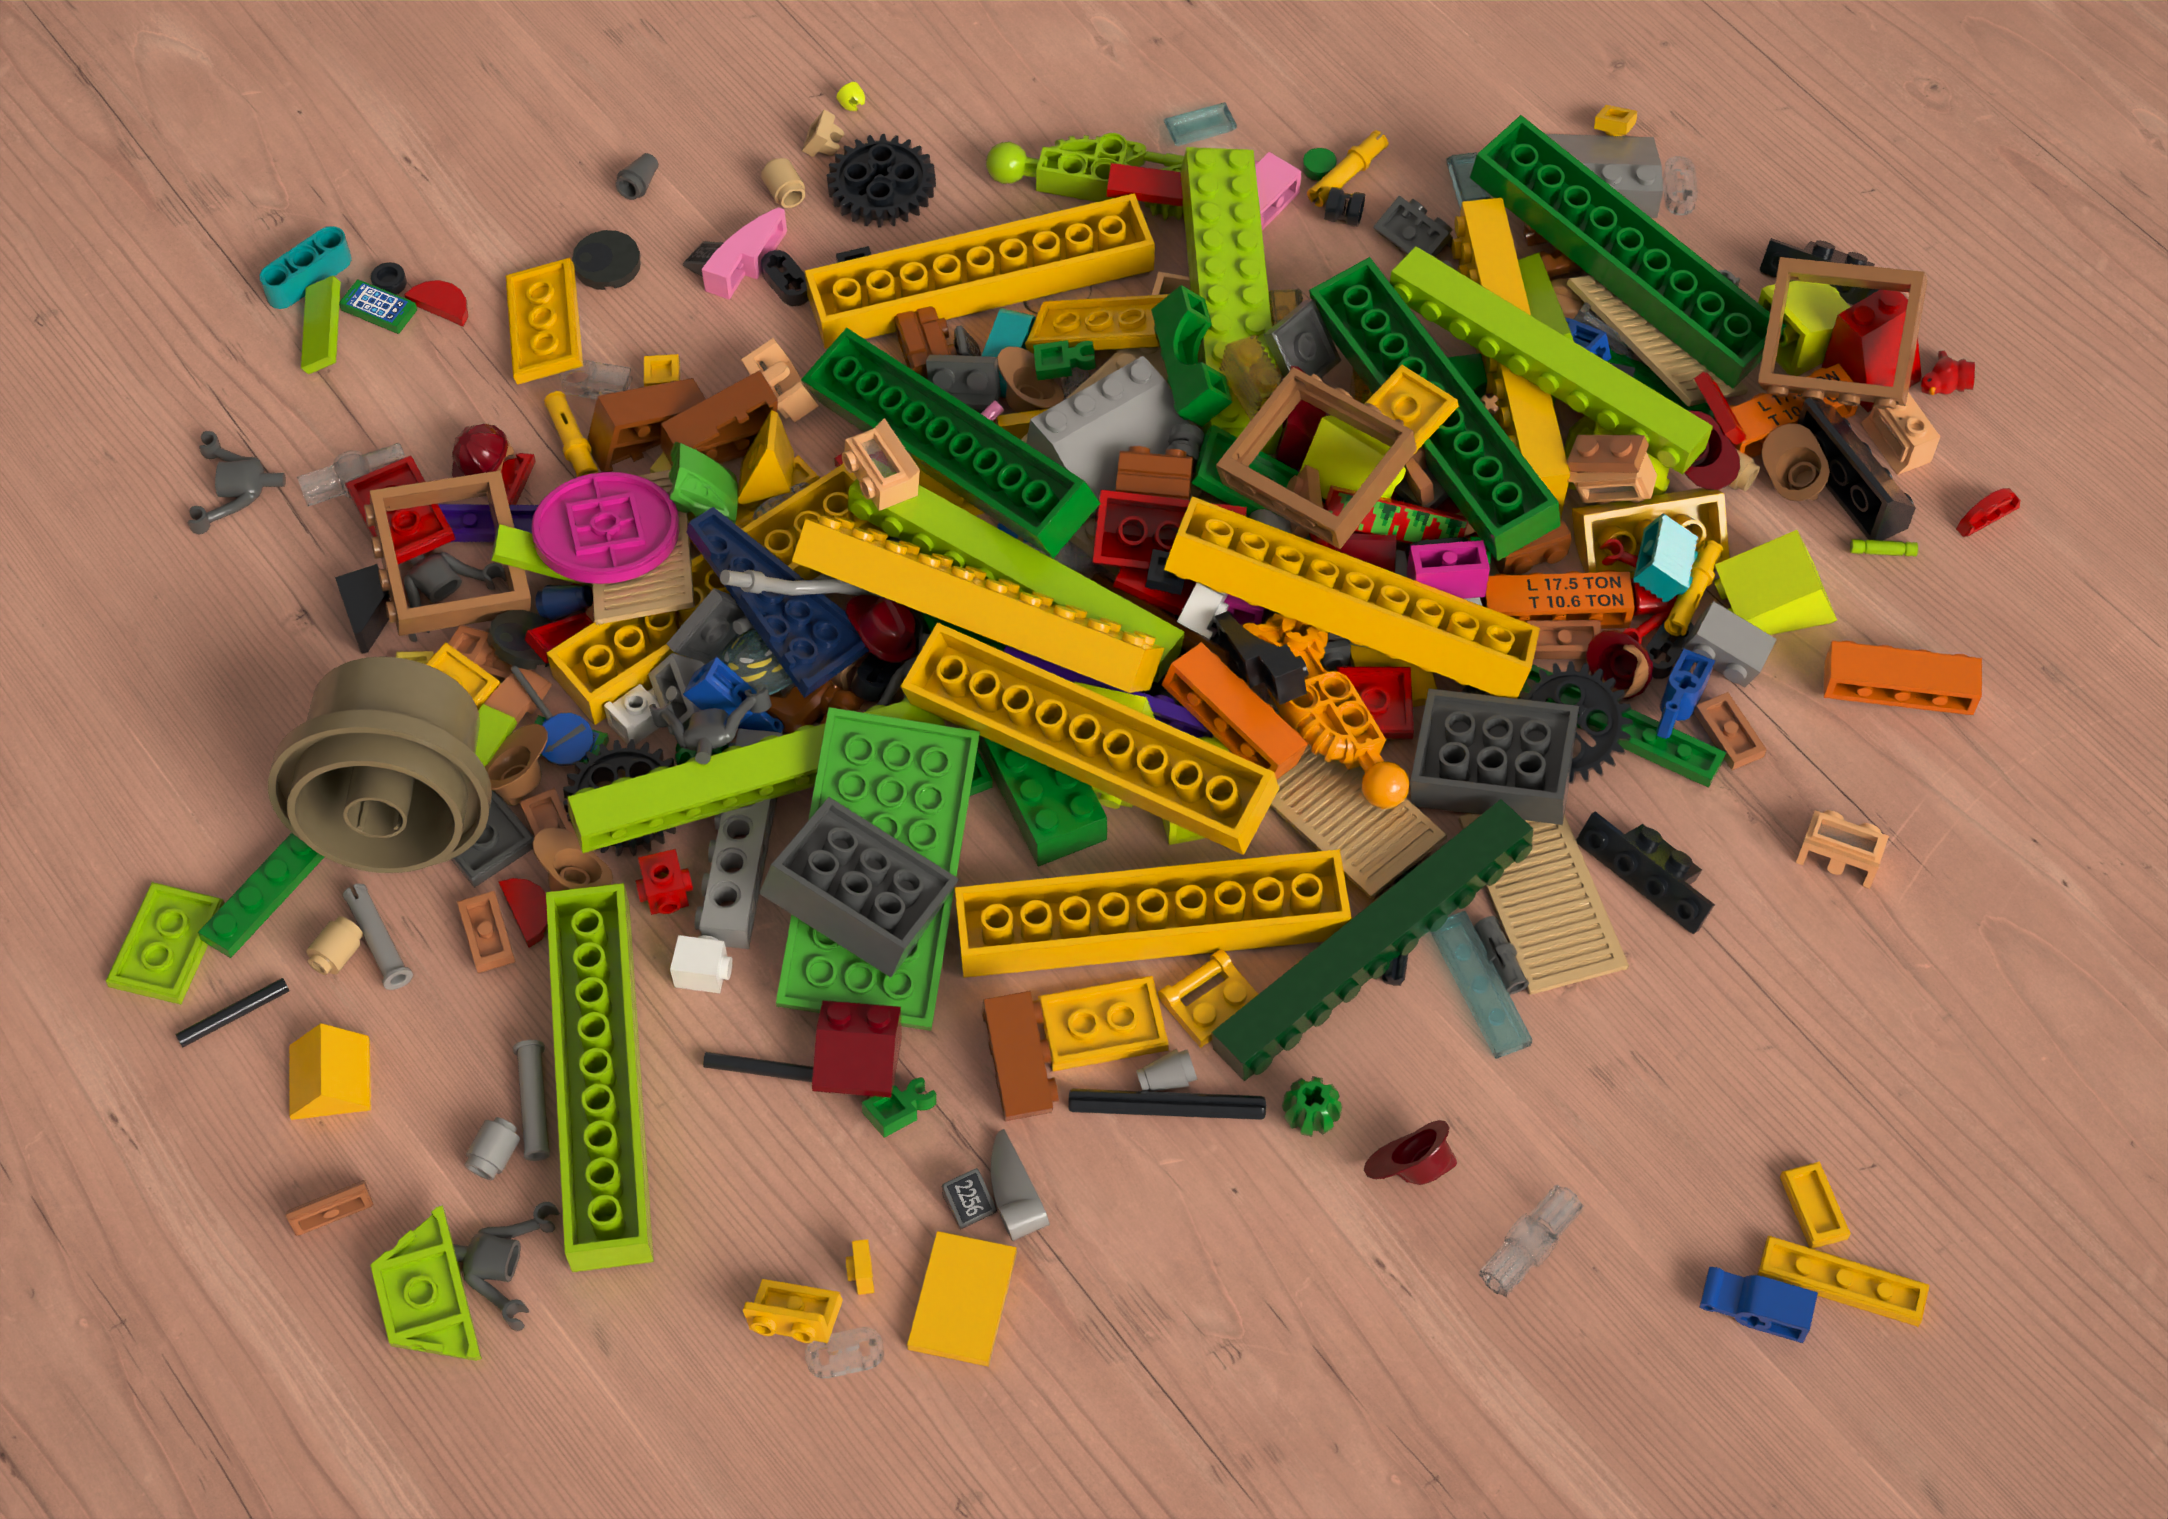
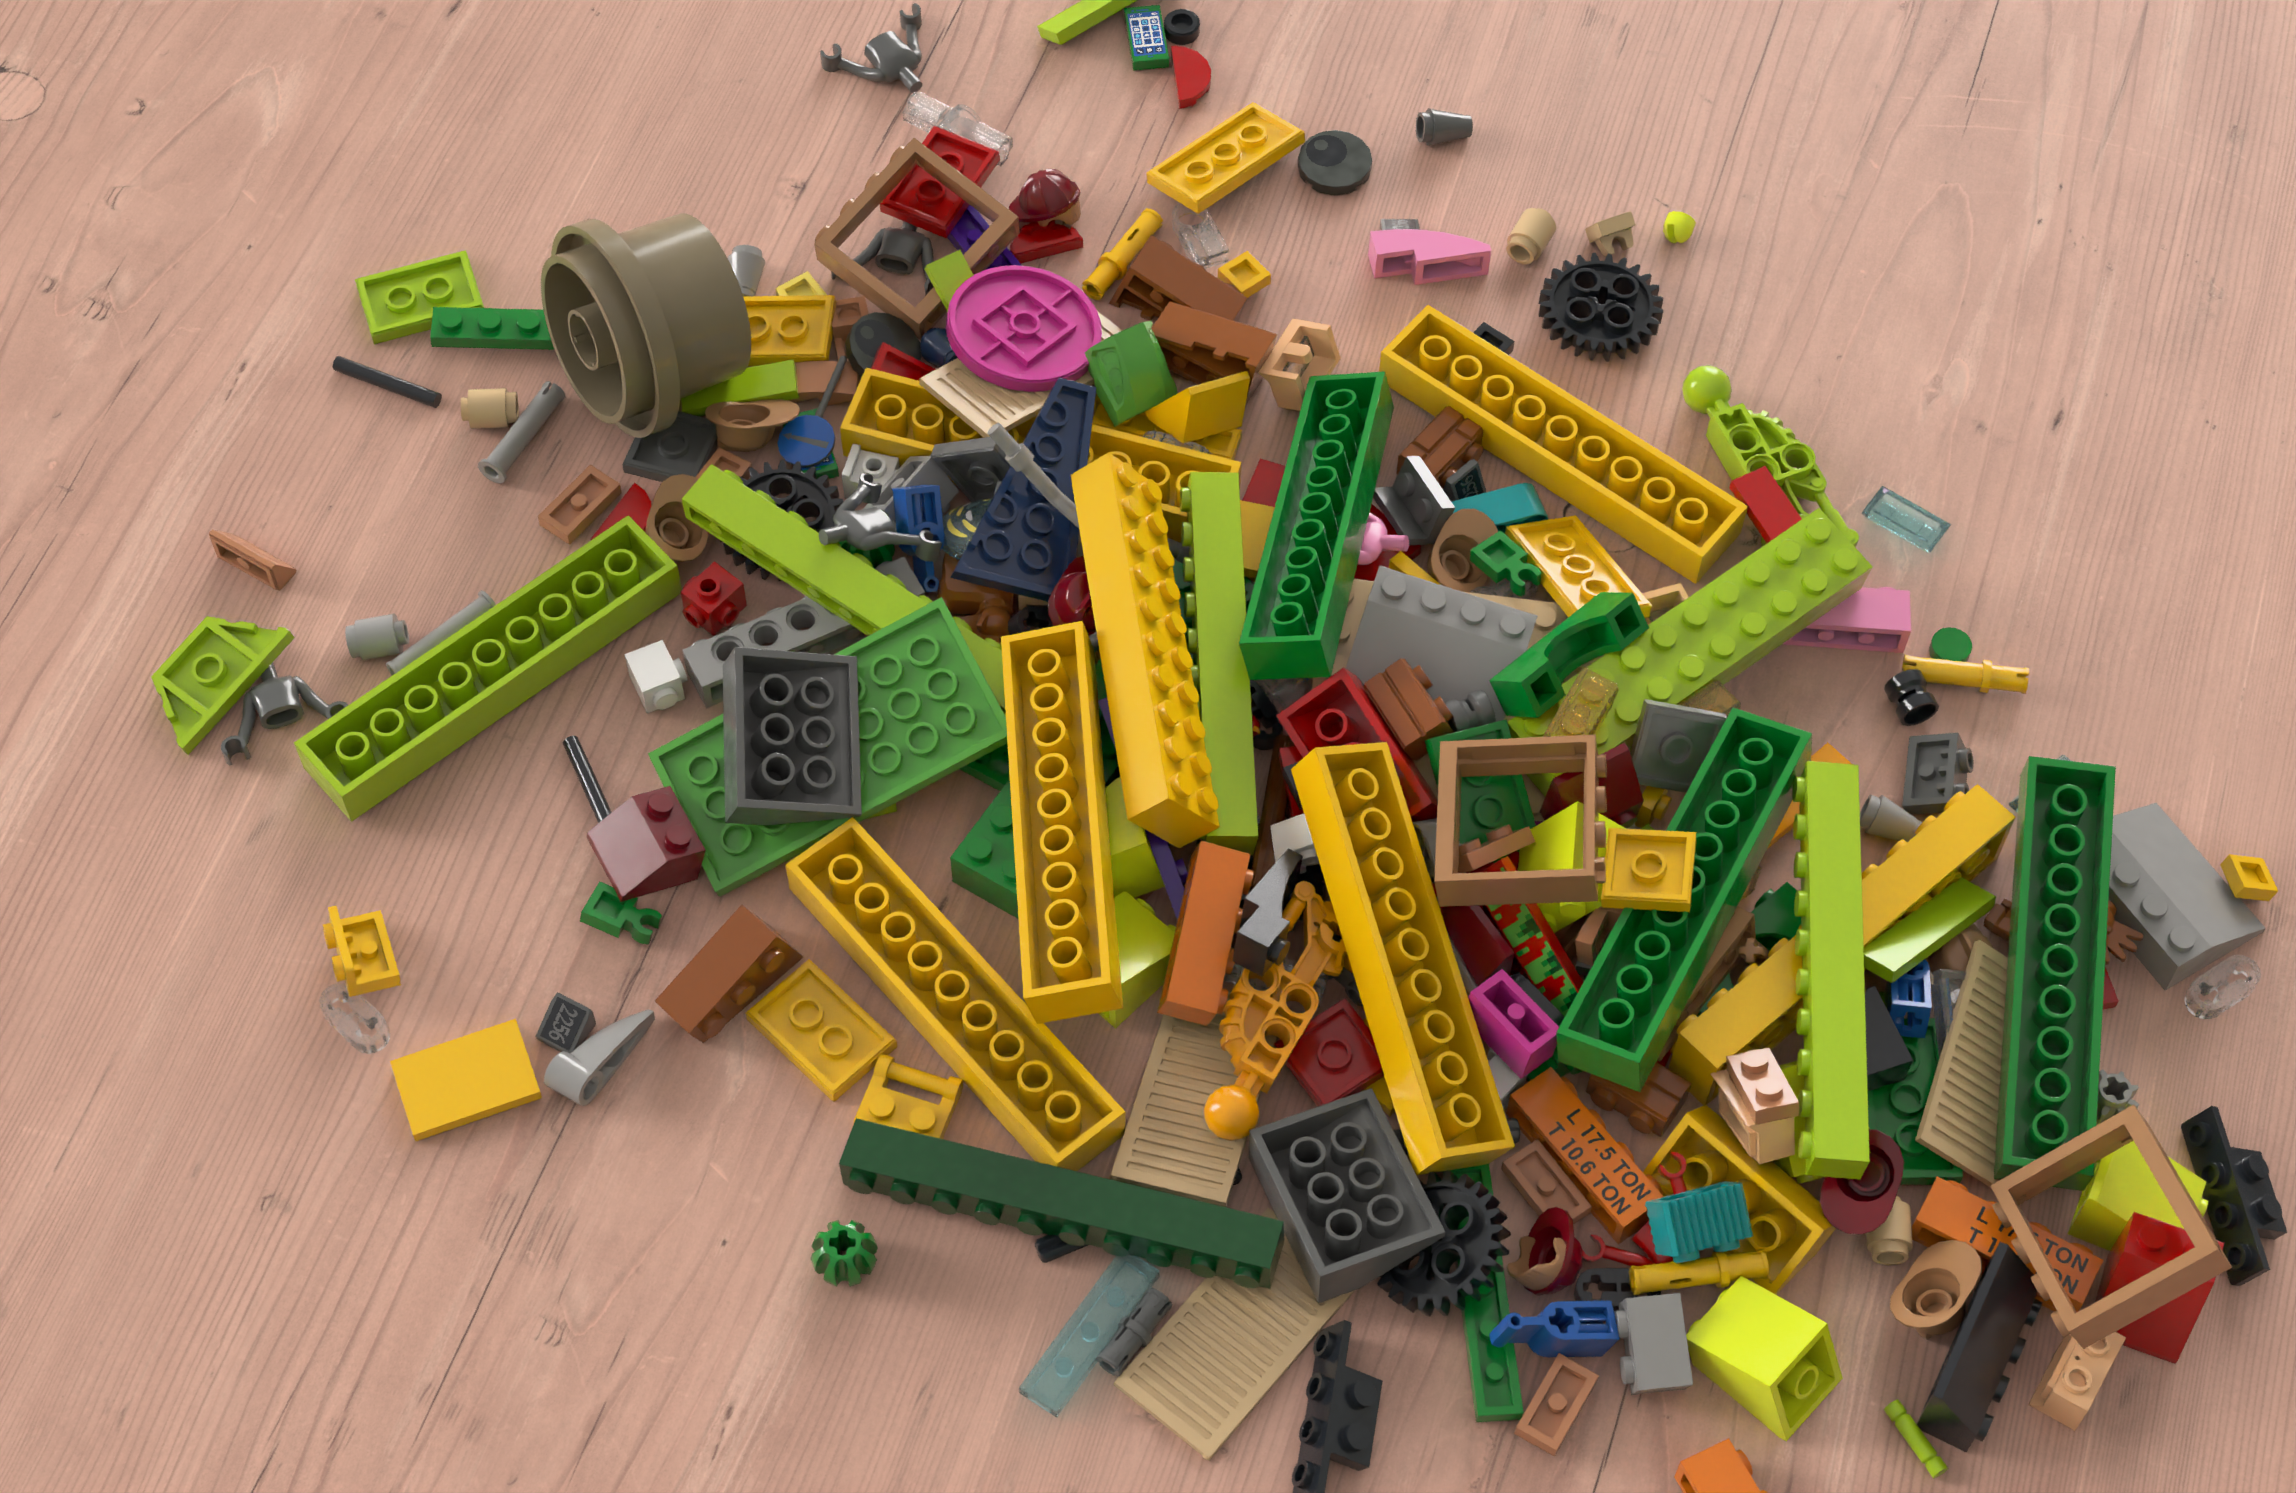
camera: 55 degrees right, 0 degrees up
(329, 1073) = (375, 484): yellow slope -> none
(364, 604) = (824, 212): black slope -> none
(780, 281) = (1422, 294): black beam -> none
(860, 1267) = (440, 980): yellow plate -> none
(881, 466) = (1223, 479): light nougat window -> none
(1167, 1072) = (802, 1112): light grey cone -> none
(1167, 1104) = (771, 1132): black axle -> none
(1415, 1157) = (849, 1374): dark red piece -> none
(1720, 408) = (1931, 1169): red tile -> none
(1949, 376) = (2195, 1385): red animal -> none

